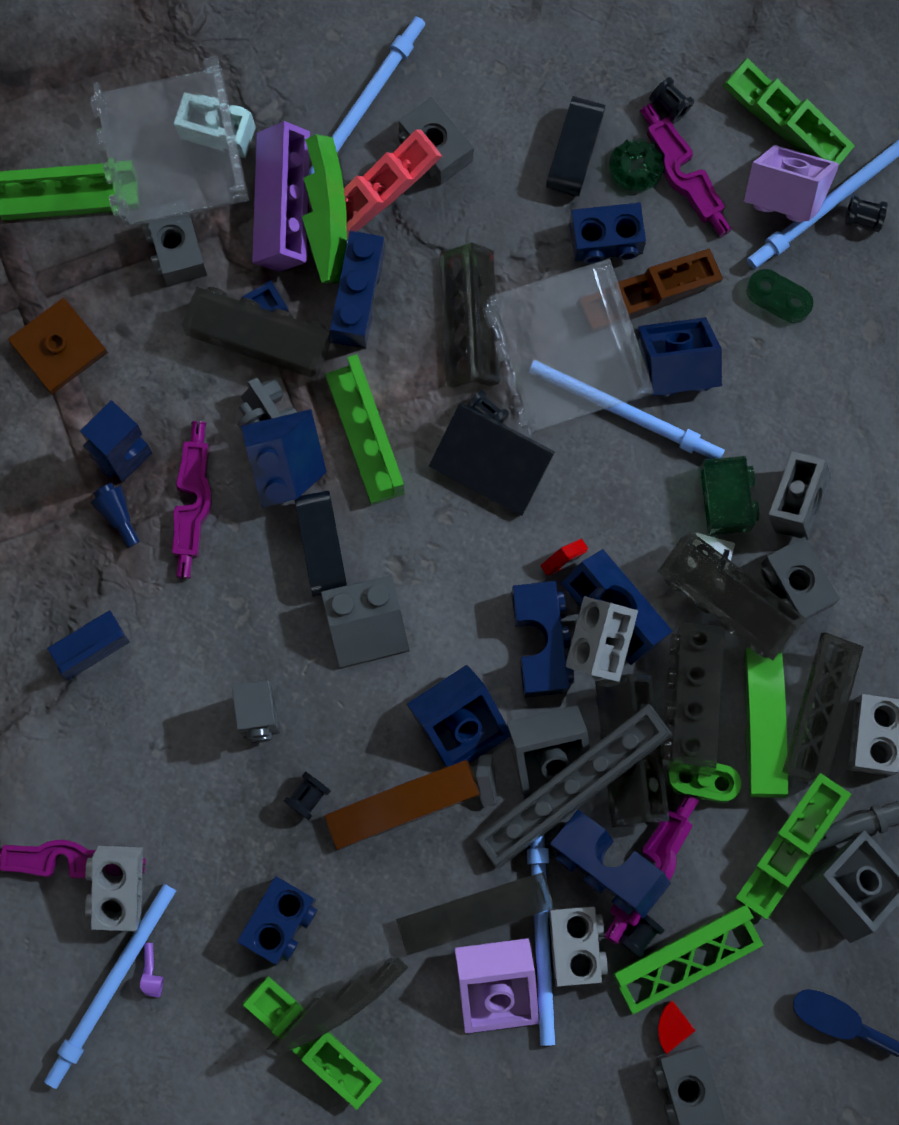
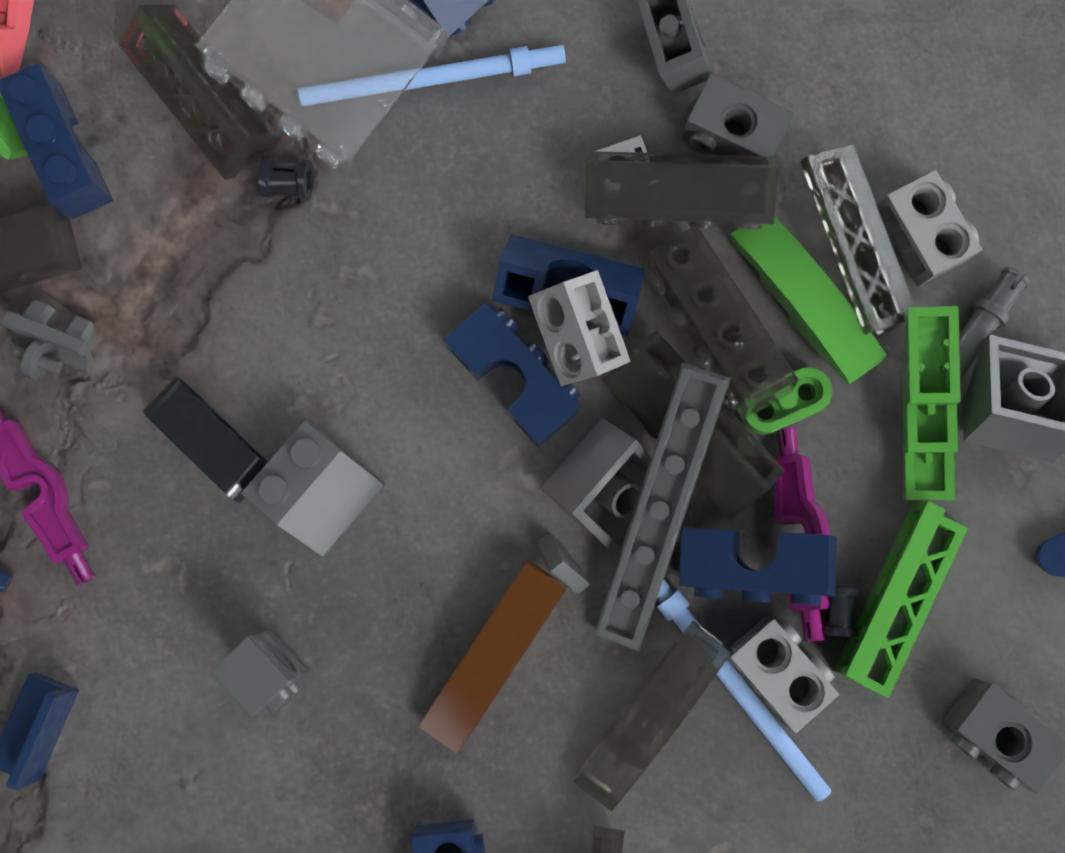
camera: 30 degrees left, 5 degrees up
(284, 456) = (96, 375): dark blue slope -> none
(307, 795) = (384, 720): black bush -> none
(365, 432) = (172, 287): bright green fence -> none
(459, 717) = (487, 520): dark blue slope -> none
(491, 458) = (325, 221): black tile -> none
(497, 985) = (727, 774): lavender slope -> none
(564, 555) = (474, 271): red tile -> none
(672, 1027) = (938, 682): red tile -> none
(728, 495) = (600, 87): clear green brick -> none

